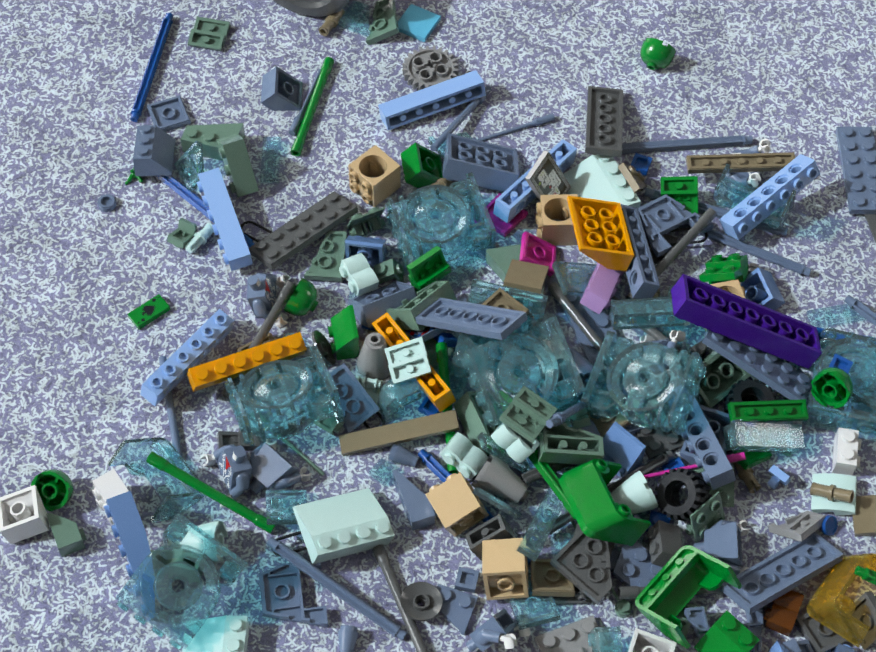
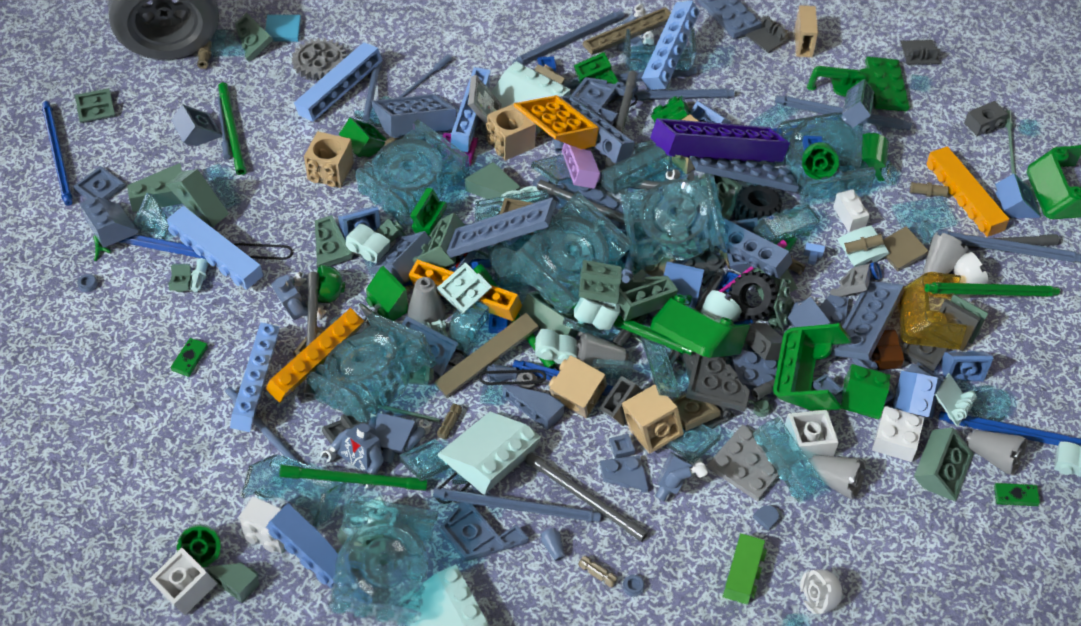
camera: 30 degrees left, 5 degrees down
(303, 230) = (291, 229): dark grey plate -> none
(330, 479) = (449, 421): none -> dark tan axle
(359, 220) = (344, 201): sand green hinge -> none
(406, 472) = (513, 382): none -> black piece
(421, 593) = (596, 474): dark grey dish -> none
(422, 478) = (529, 375): none -> light grey plate
(526, 276) = (515, 182): dark tan tile -> none
(537, 251) = (510, 164): dark pink tile -> none
(604, 121) = (498, 42): dark grey plate -> none
(759, 546) = (835, 309): none -> sand blue wing
(769, 410) = (778, 202): green tile -> none

